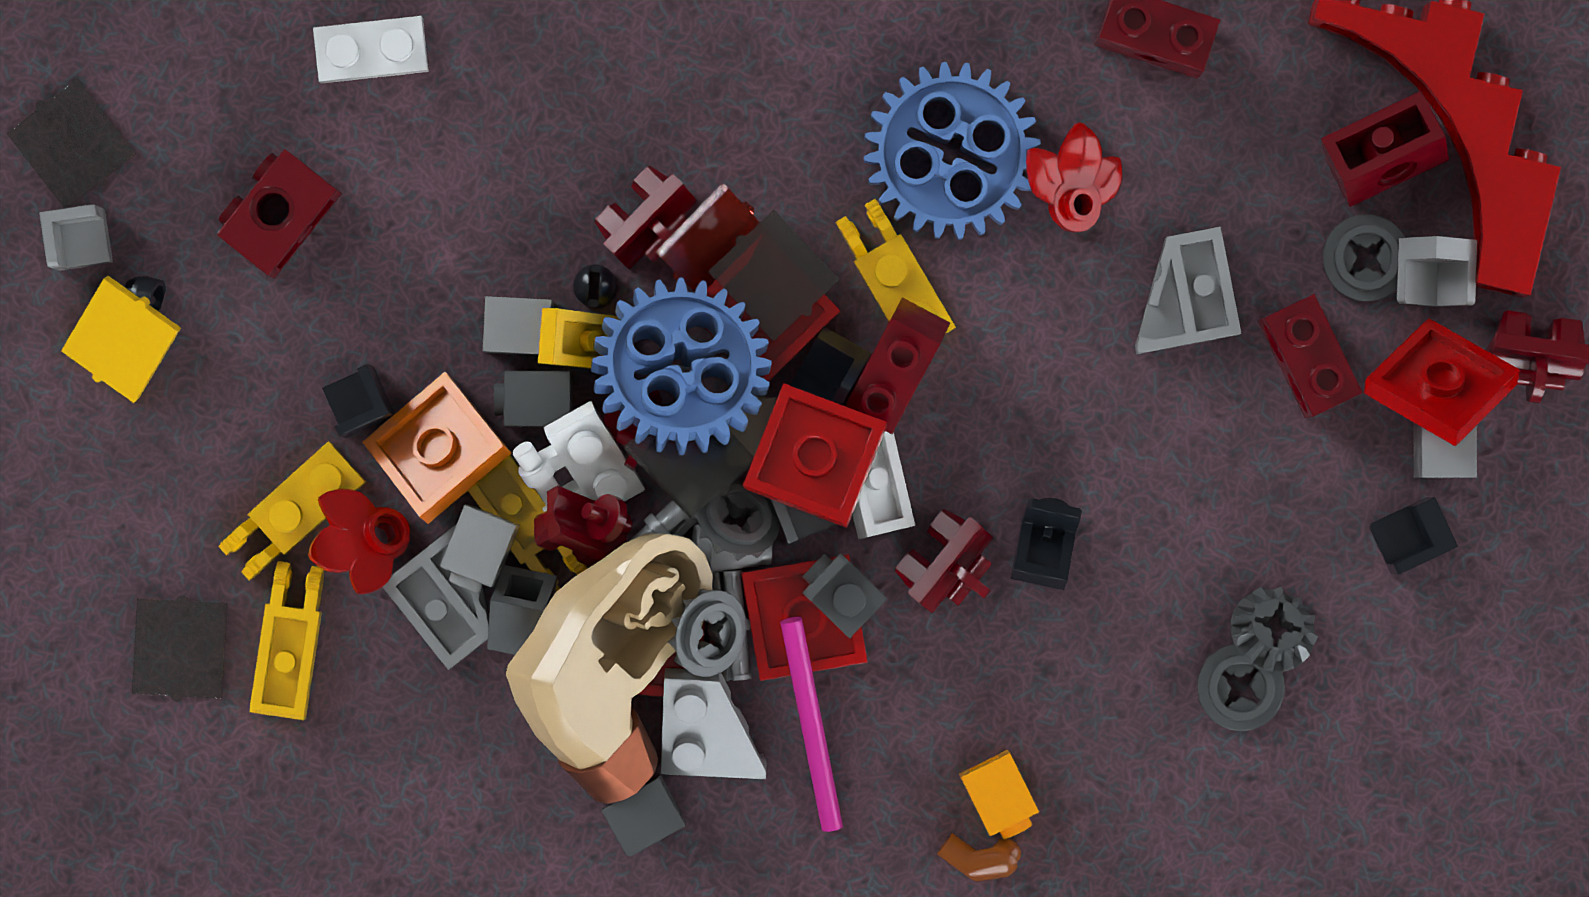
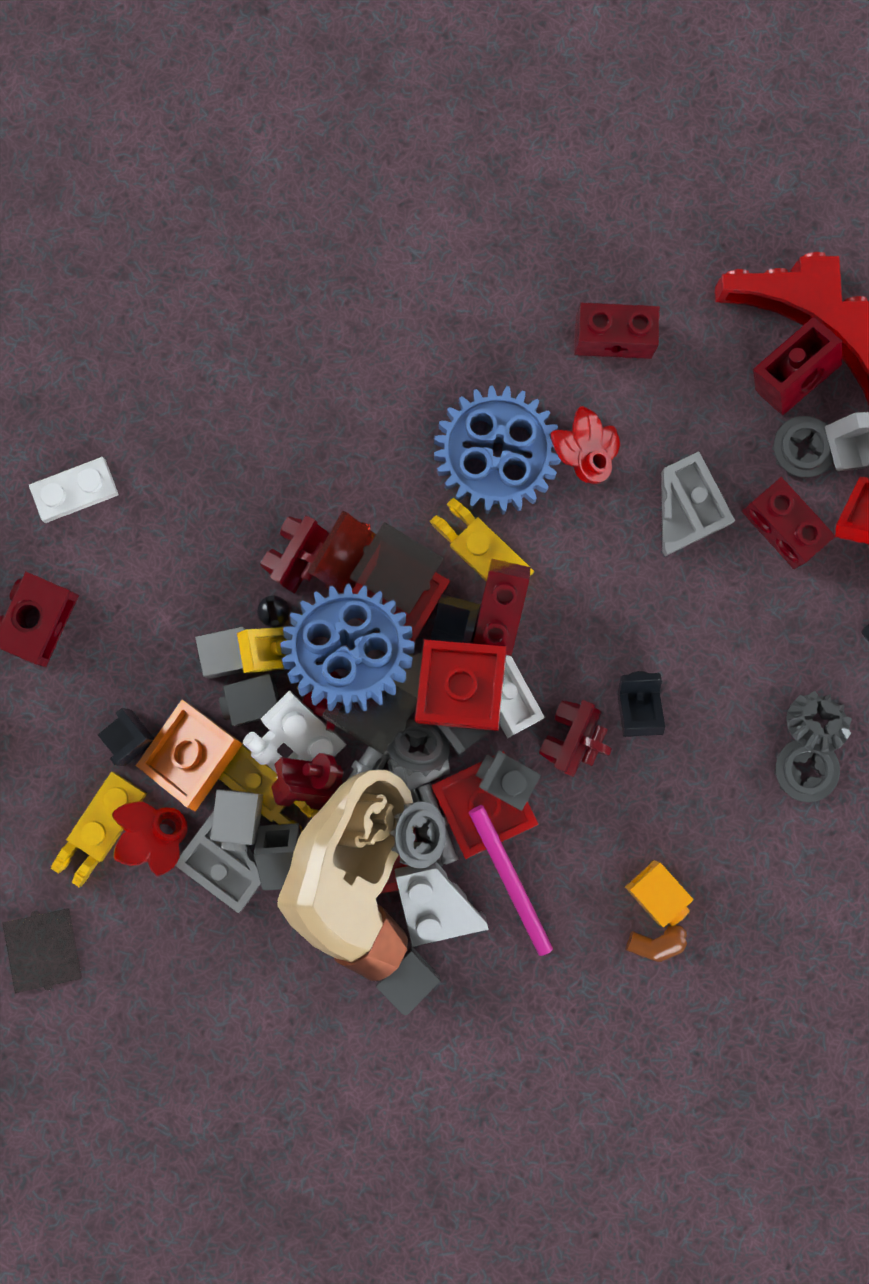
camera: 15 degrees left, 5 degrees down
(287, 648) = (118, 928): yellow hinge -> none

